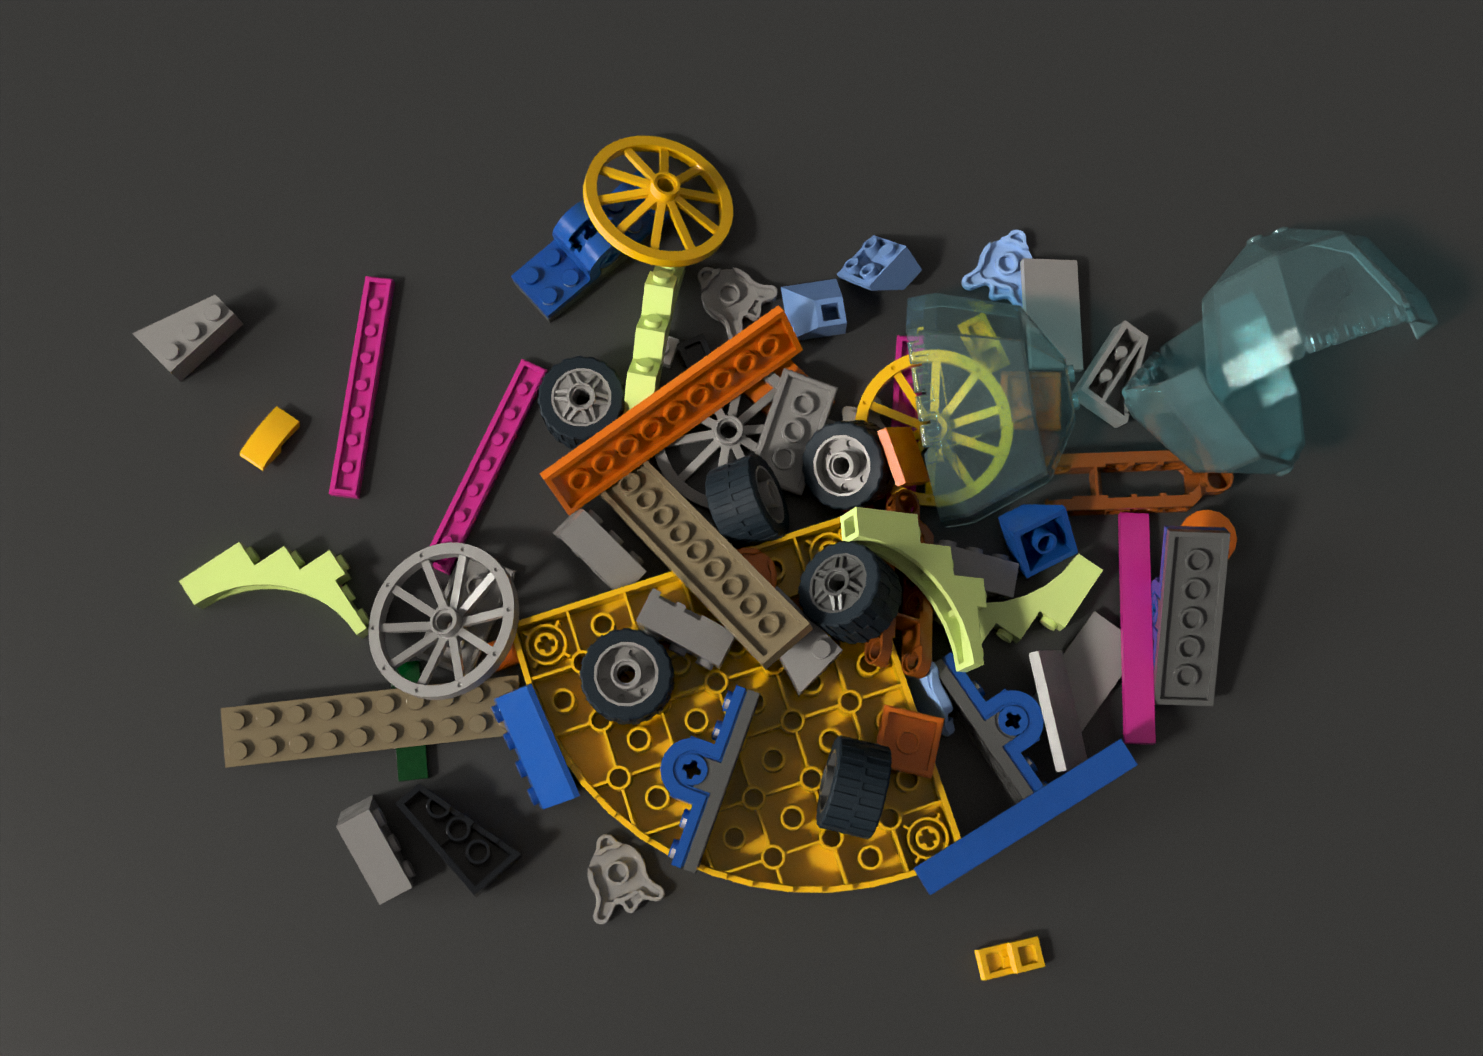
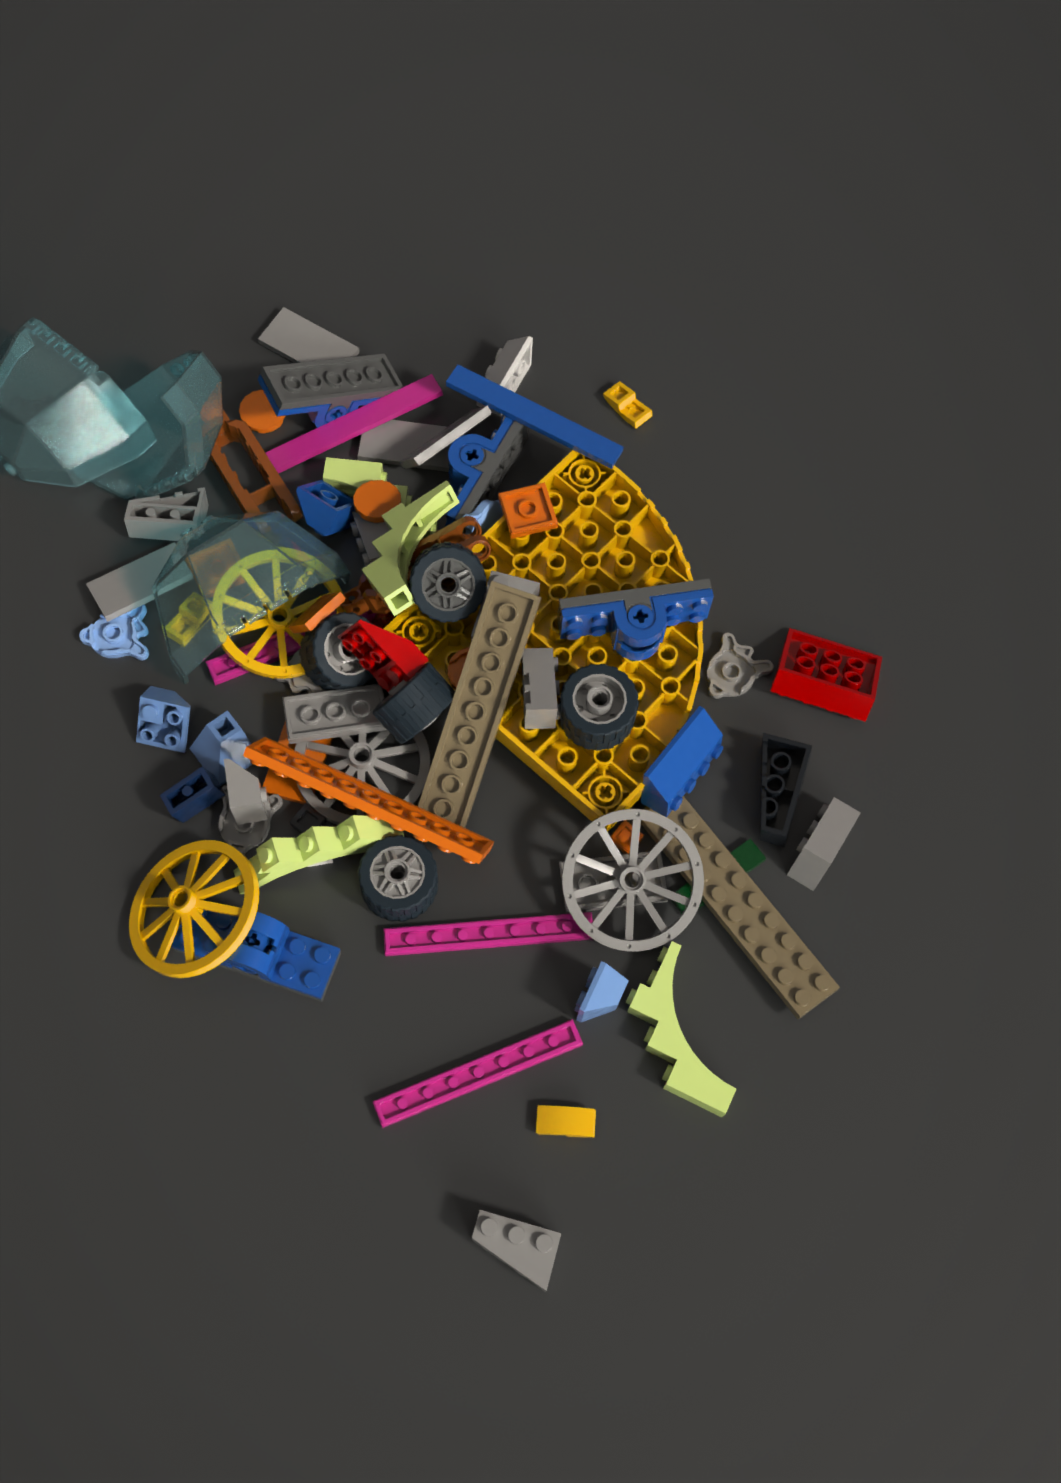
camera: 125 degrees left, 10 degrees down
(357, 534) = (603, 993): none -> medium blue slope
(554, 977) = (827, 674): none -> red slope
(600, 549) = (507, 805): light grey wedge -> none
(747, 297) = (246, 796): none -> light grey slope
(779, 255) = (192, 794): none -> dark blue brick
(798, 502) = (383, 653): none -> red slope
(854, 787) = (584, 514): black wheel -> none
(1014, 592) = (375, 499): none -> orange tile
(1117, 831) = (511, 365): none -> white slope
(1274, 632) = (303, 340): none -> light grey tile

